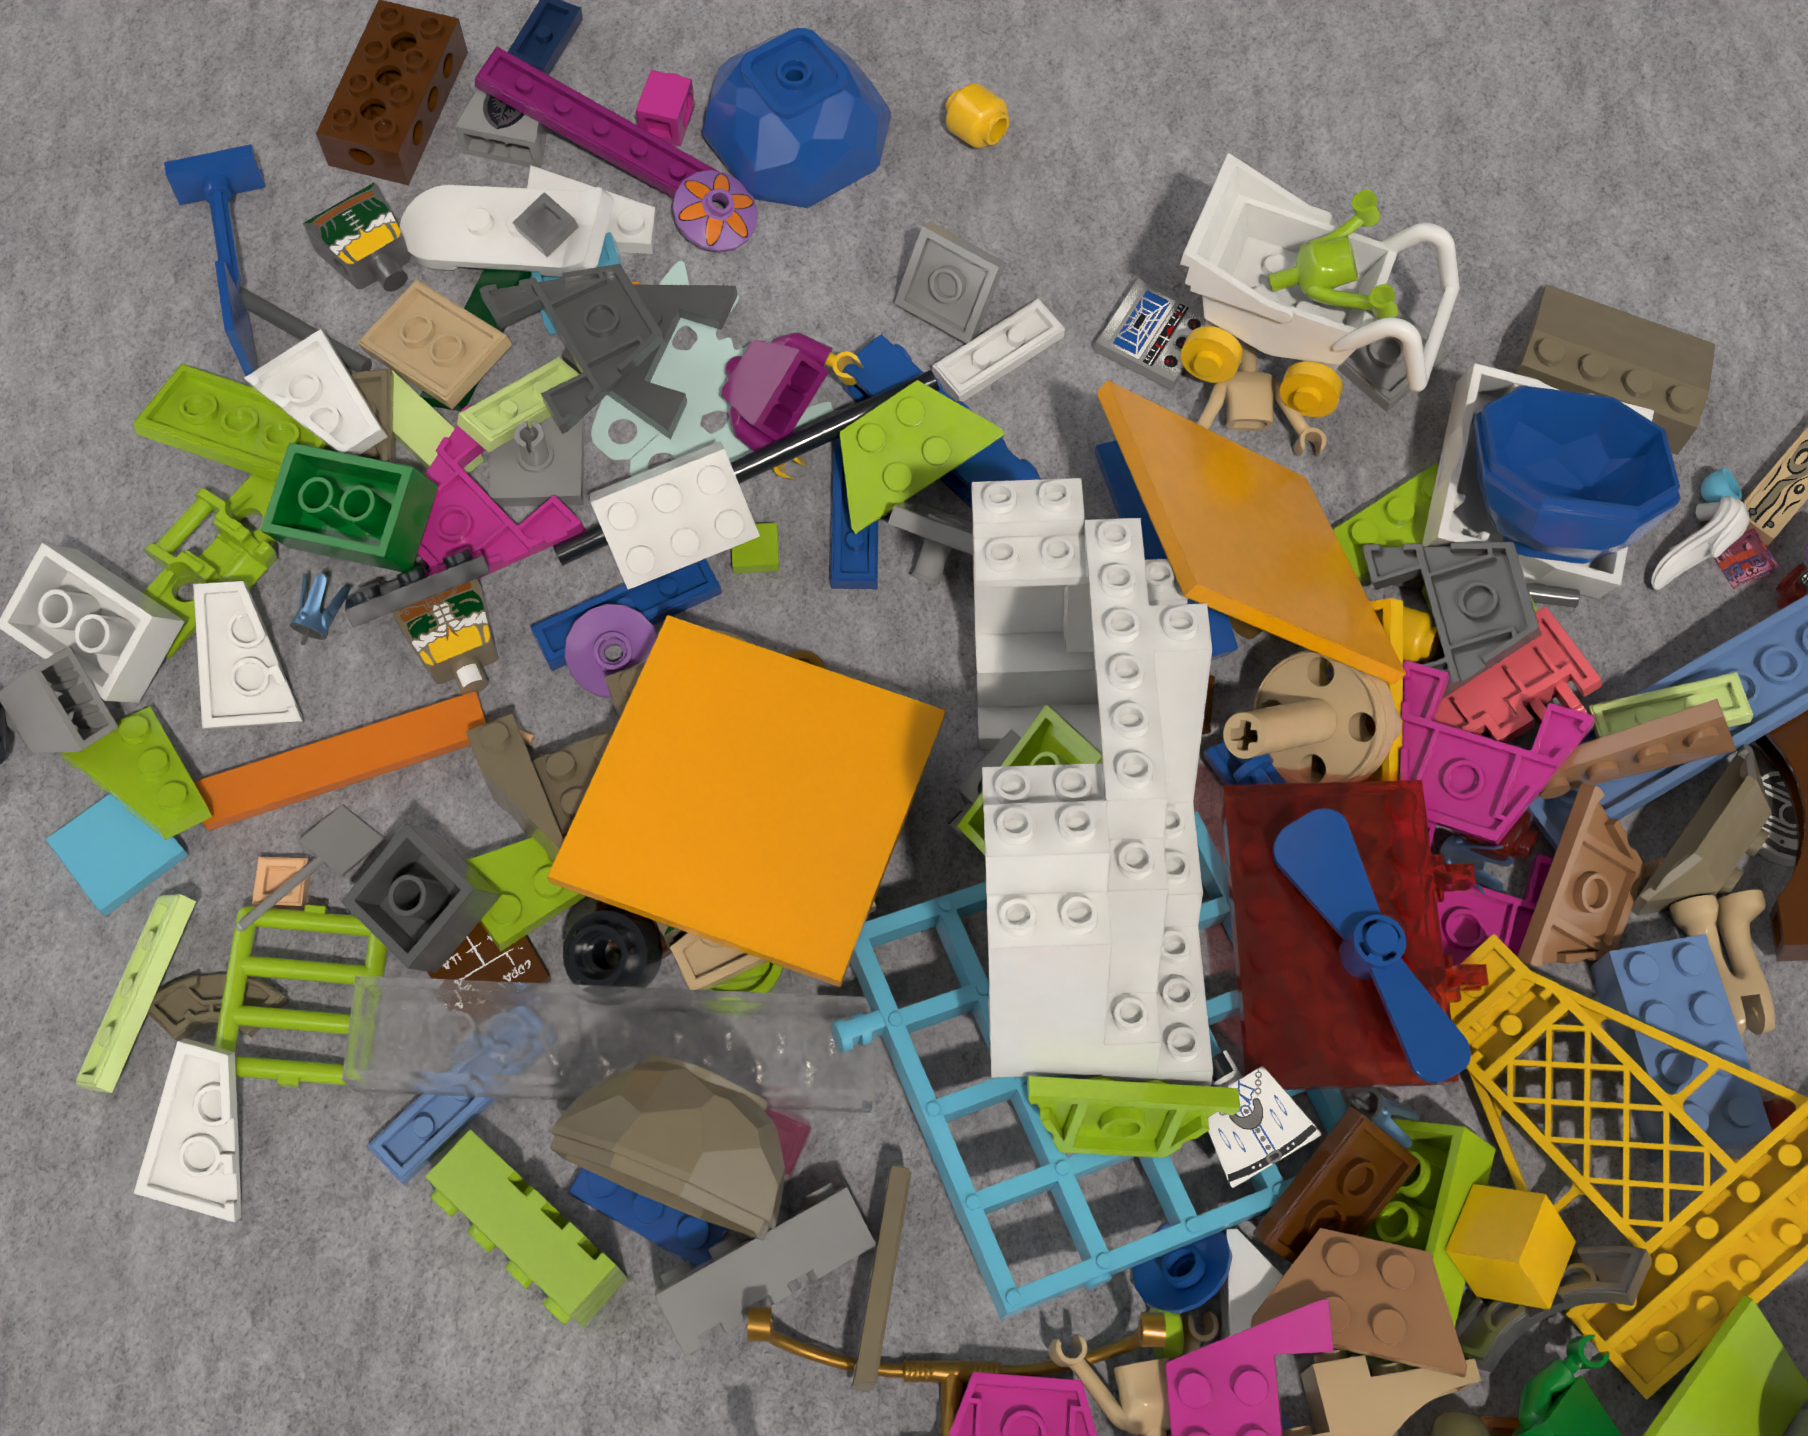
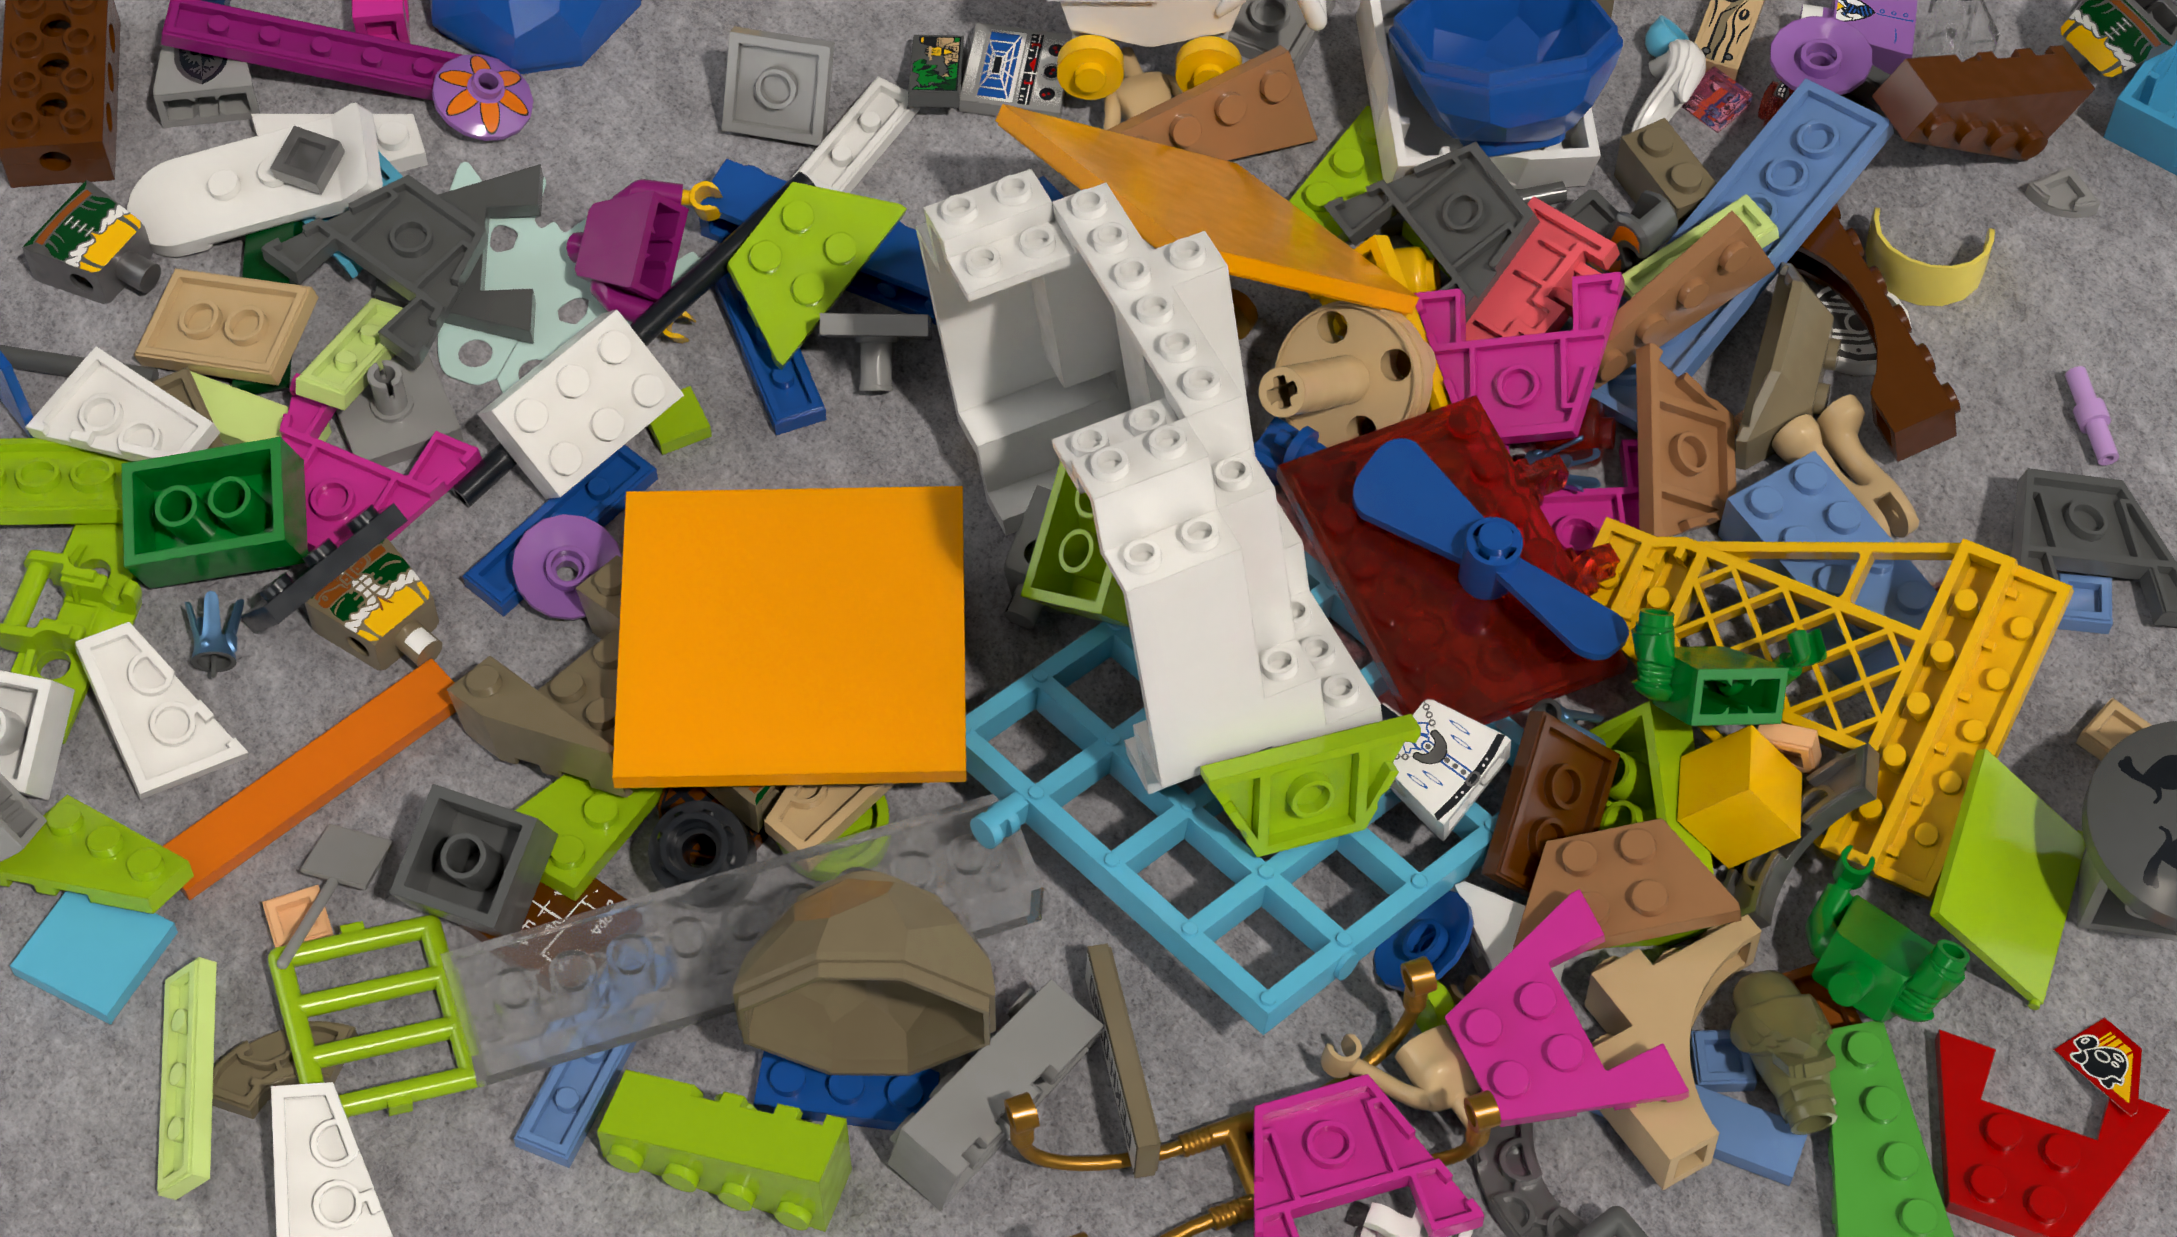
camera: 20 degrees left, 10 degrees down
(1086, 310) = (936, 71): none -> tile
(1312, 436) = (1233, 114): none -> medium nougat wing
(1528, 1139) = (1715, 681): none -> green torso
(1577, 1217) = (1796, 743): none -> light nougat tile
(1622, 671) = (1635, 234): none -> dark grey animal
(1669, 621) = (1662, 163): none -> dark tan brick

